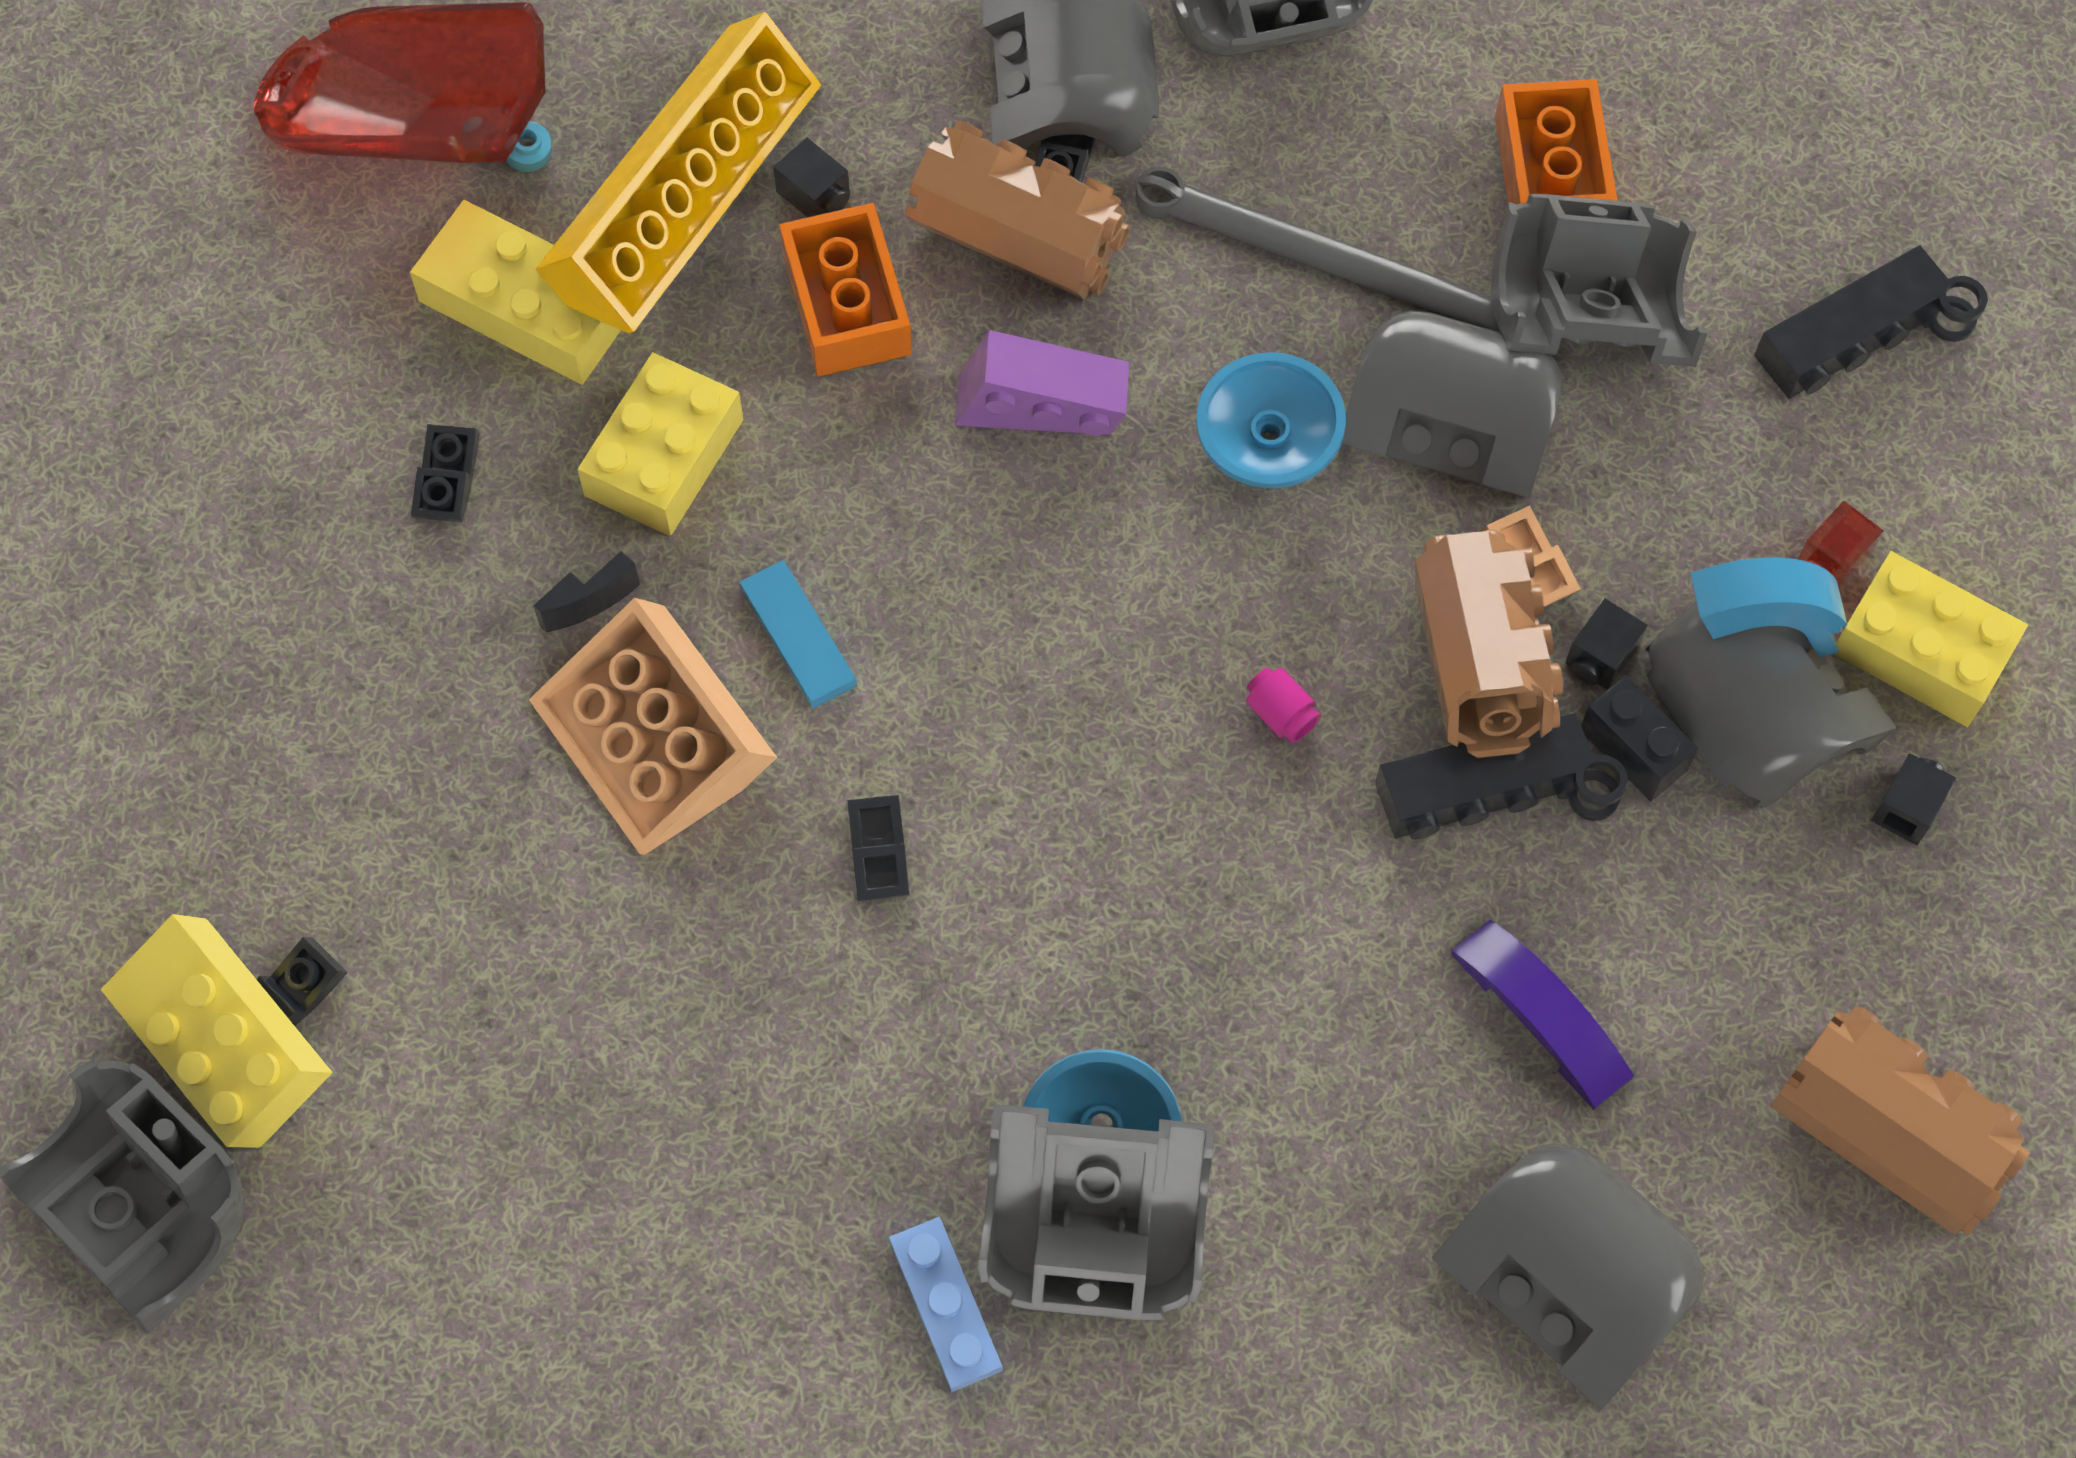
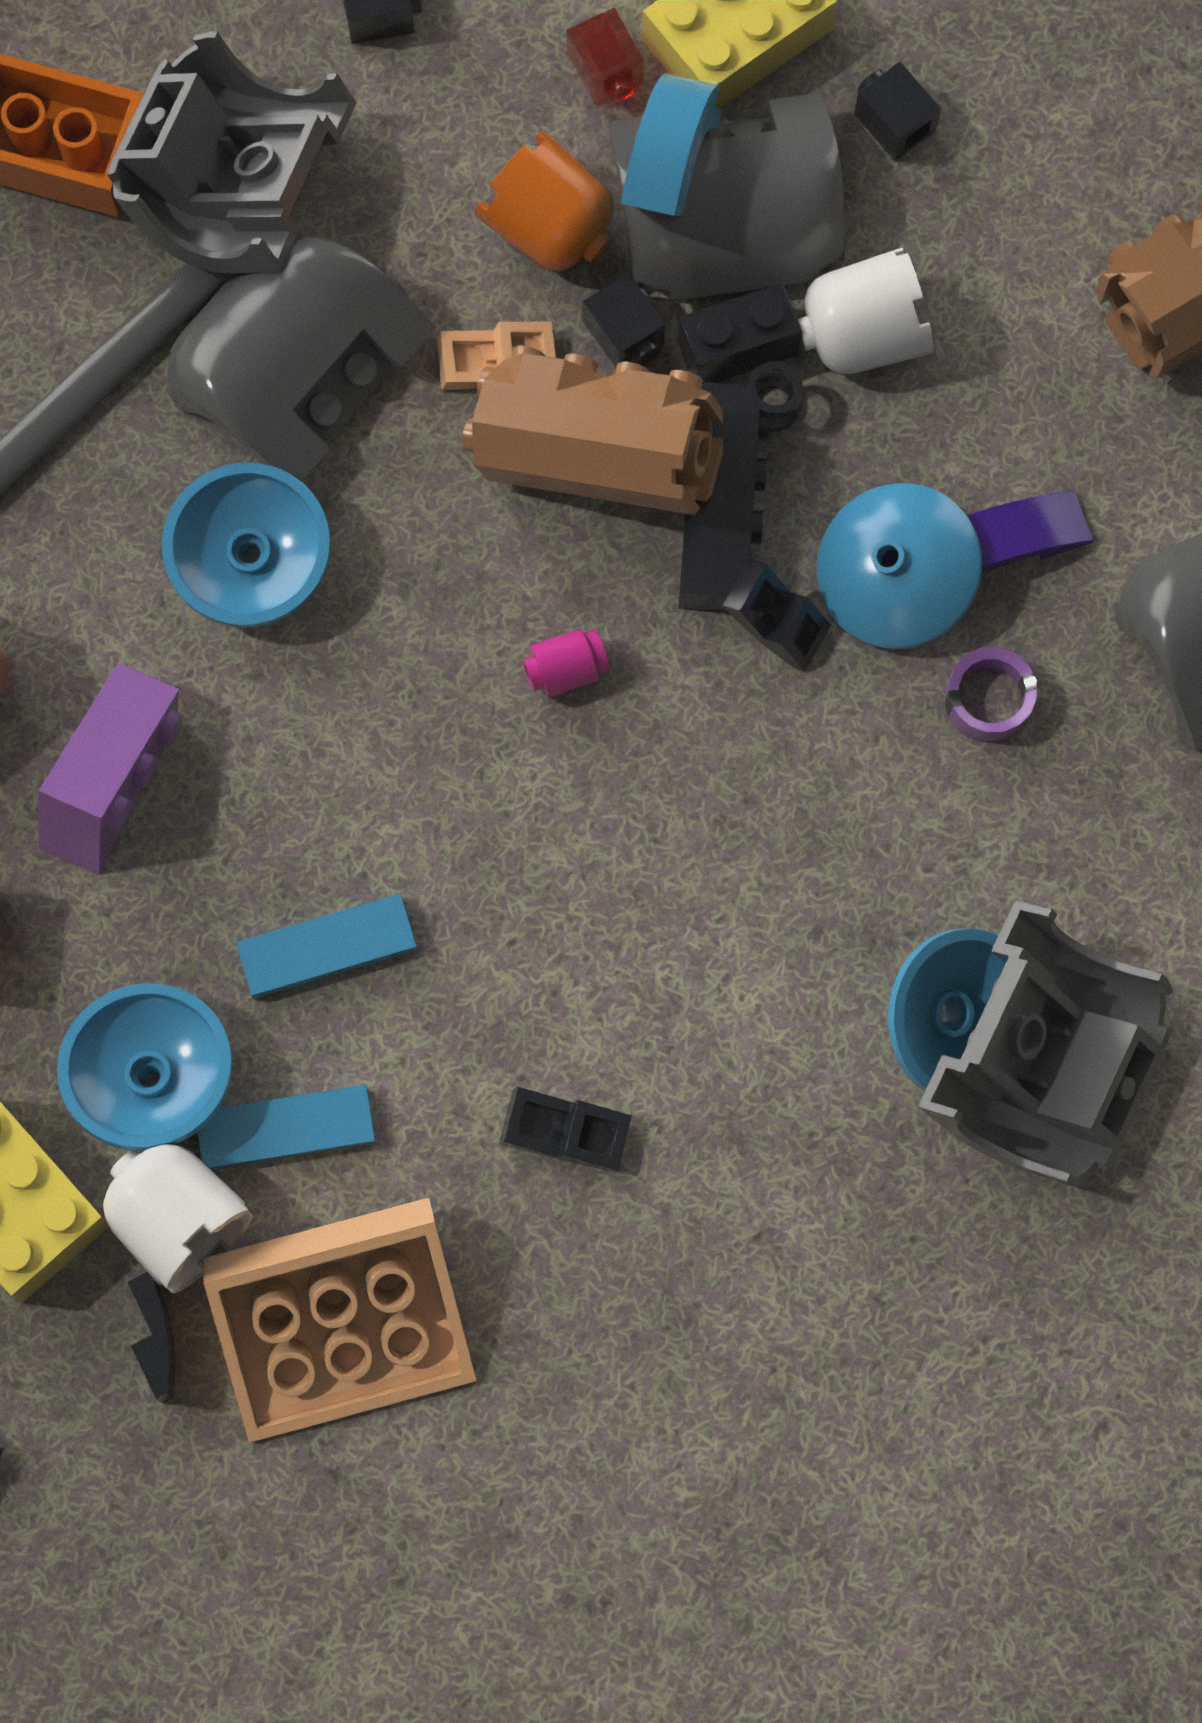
camera: 70 degrees left, 10 degrees up
(689, 564) = (172, 1212): none -> white cylinder
(807, 481) = (137, 1034): none -> dark azure dish
(945, 1304) = (1073, 1235): light blue plate -> none
(962, 611) = (326, 946): none -> dark azure tile
(1397, 854) = (775, 616): none -> black slope
(1409, 1030) = (1001, 660): none -> medium lavender piece
(1494, 963) = (927, 585): none -> dark azure dish
(1675, 534) = (549, 206): none -> orange cylinder
(1706, 832) = (866, 315): none -> white cylinder

